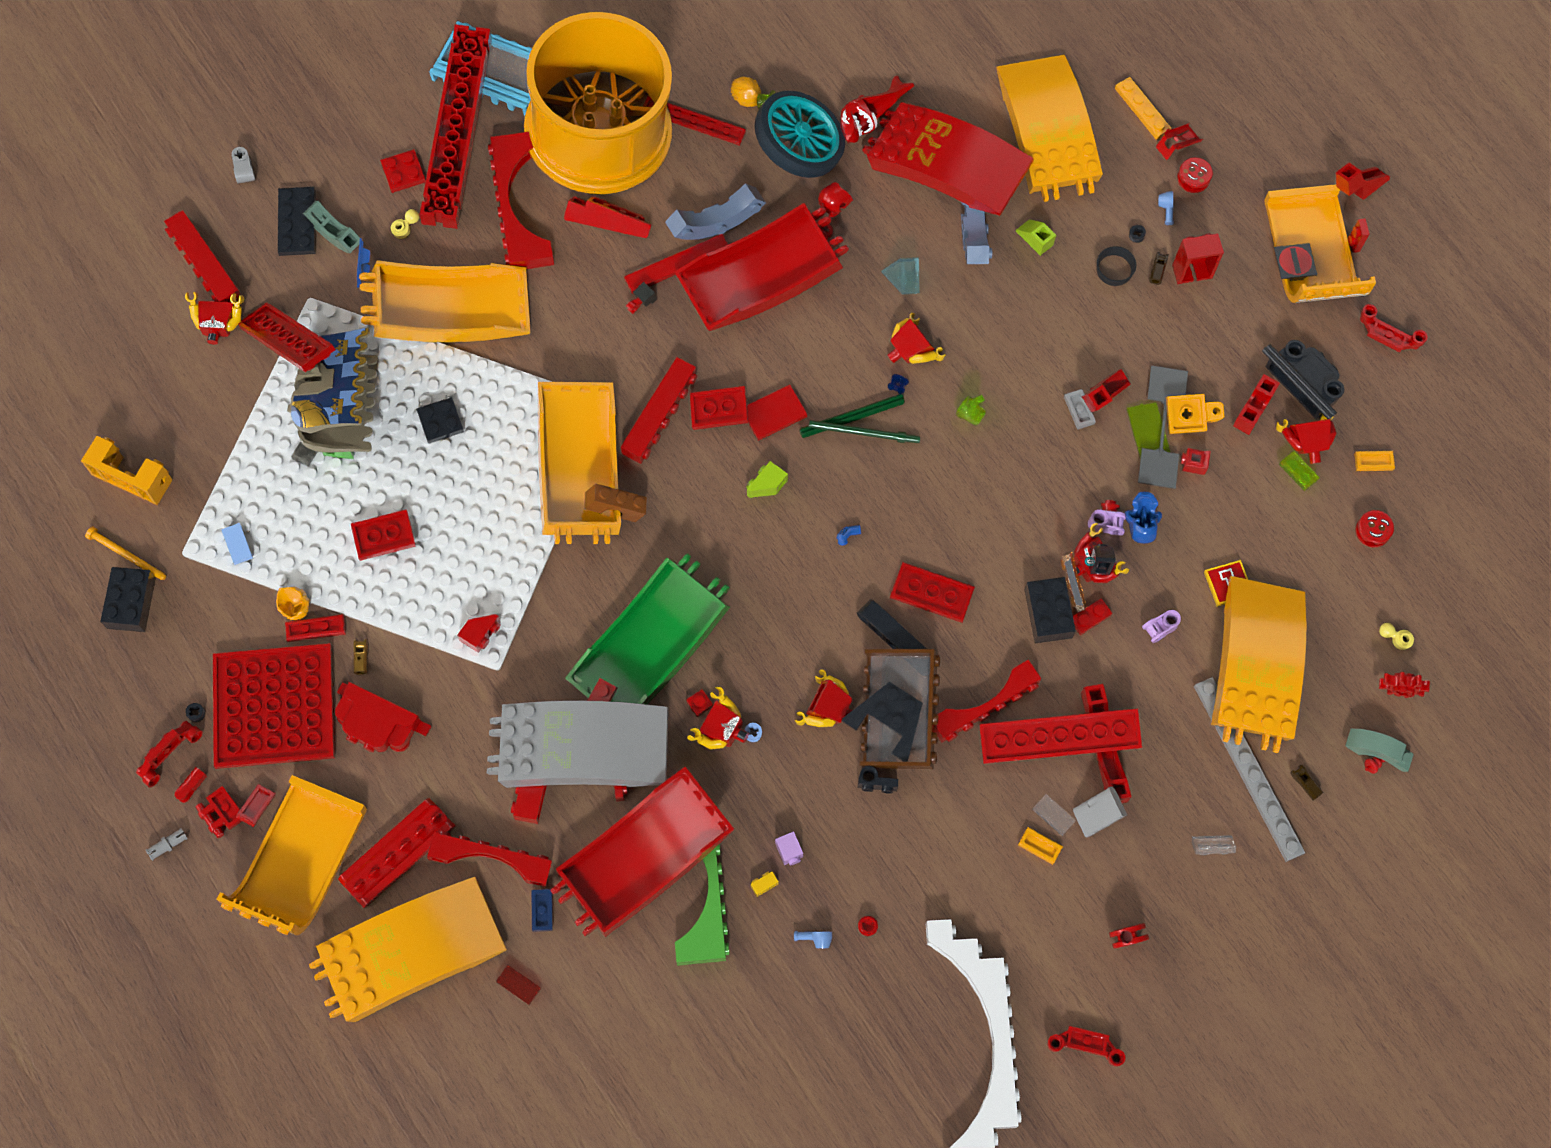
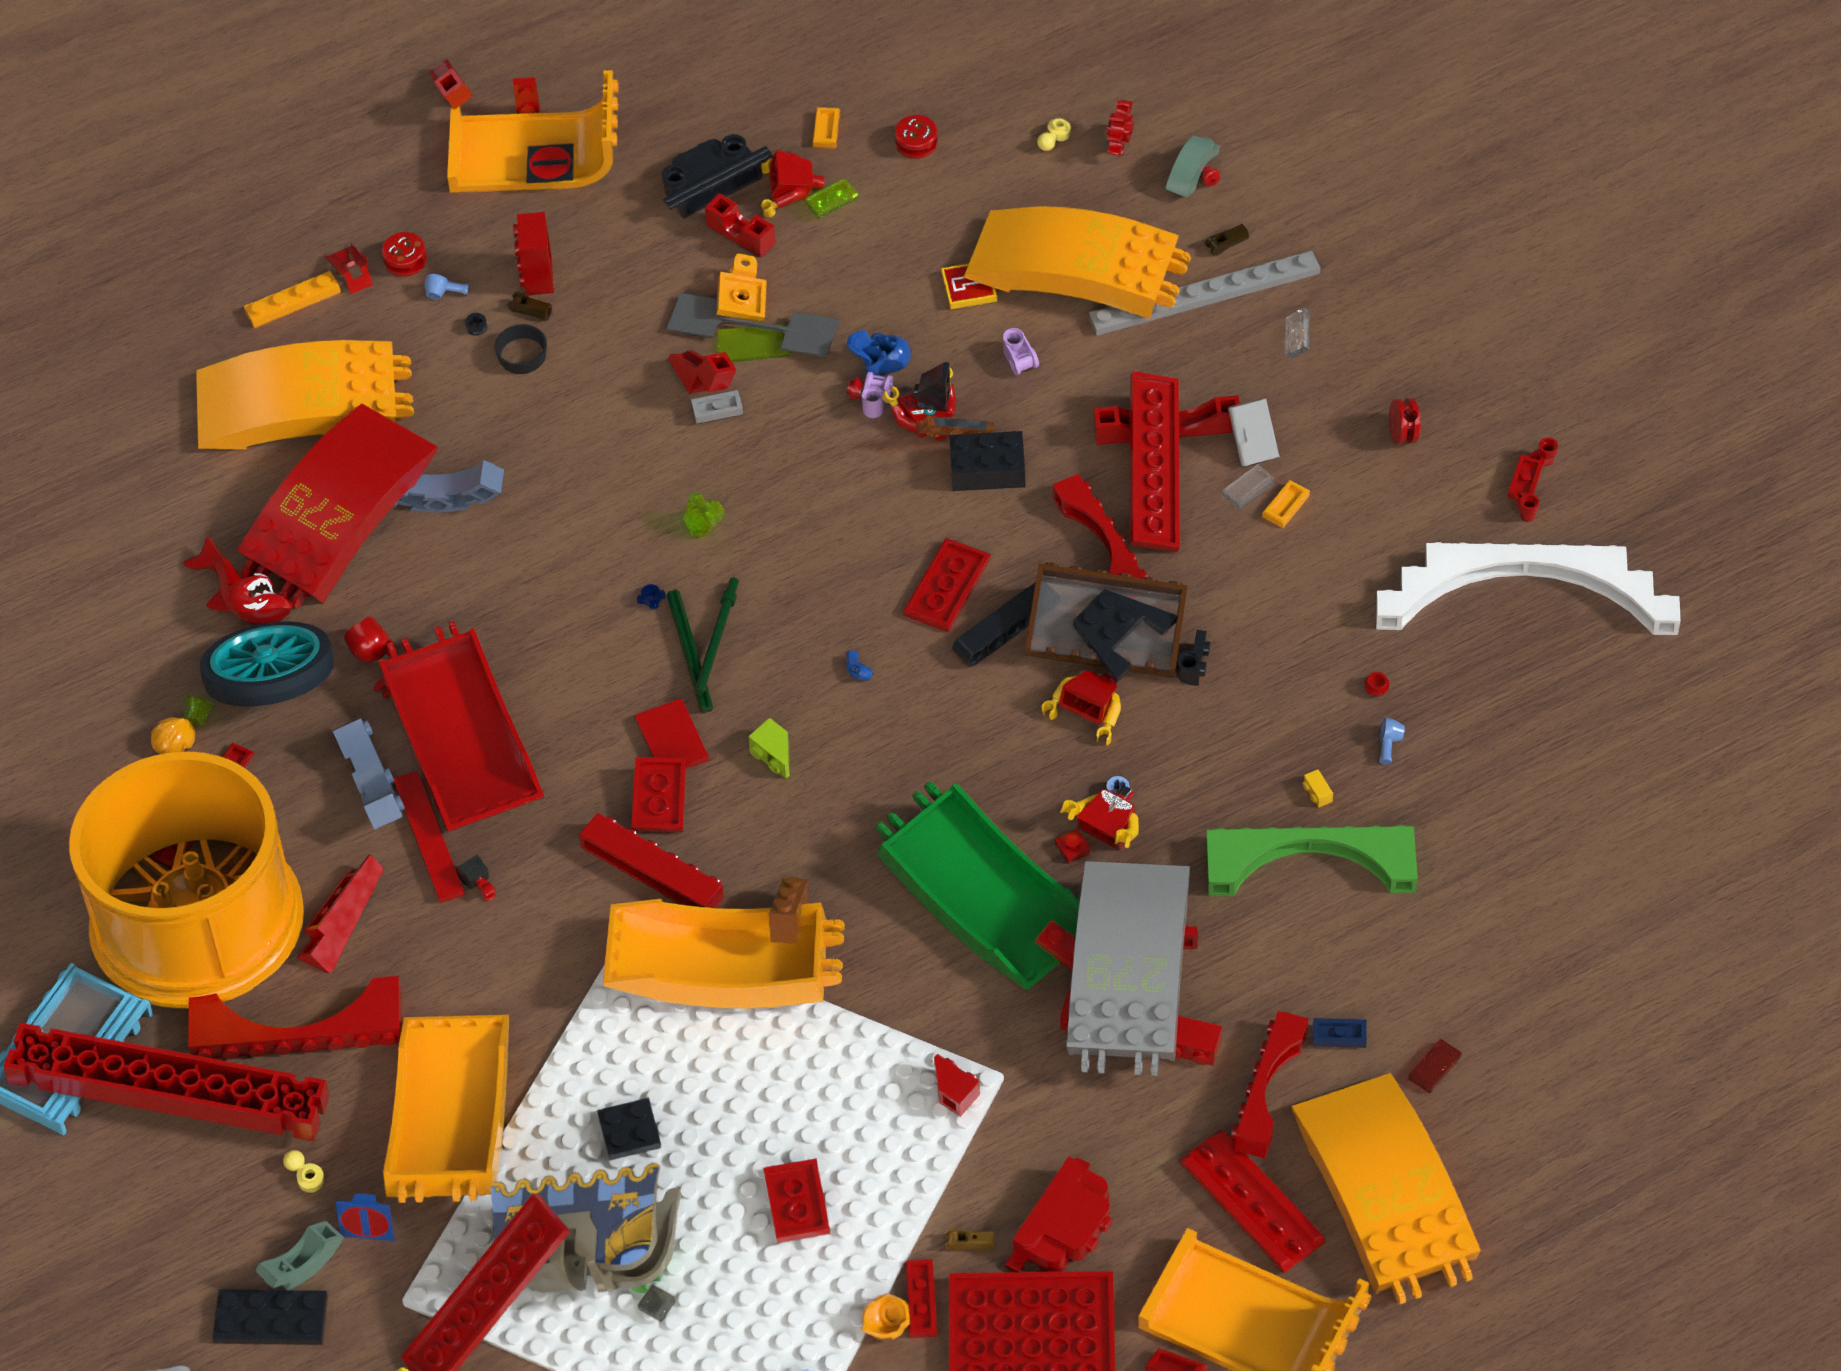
camera: 80 degrees left, 15 degrees down
(403, 171) = (213, 1174): red plate -> none
(643, 853) = (1276, 904): red hinge -> none
(789, 849) = (1275, 756): lavender brick -> none
(904, 275) = (495, 574): clear light blue slope -> none
(912, 343) = (597, 572): red torso -> none
(1037, 235) = (463, 424): lime slope -> none
(1091, 616) = (994, 413): red plate -> none
(1195, 461) = (805, 295): red window -> none
(1389, 335) = (661, 92): red plate -> none

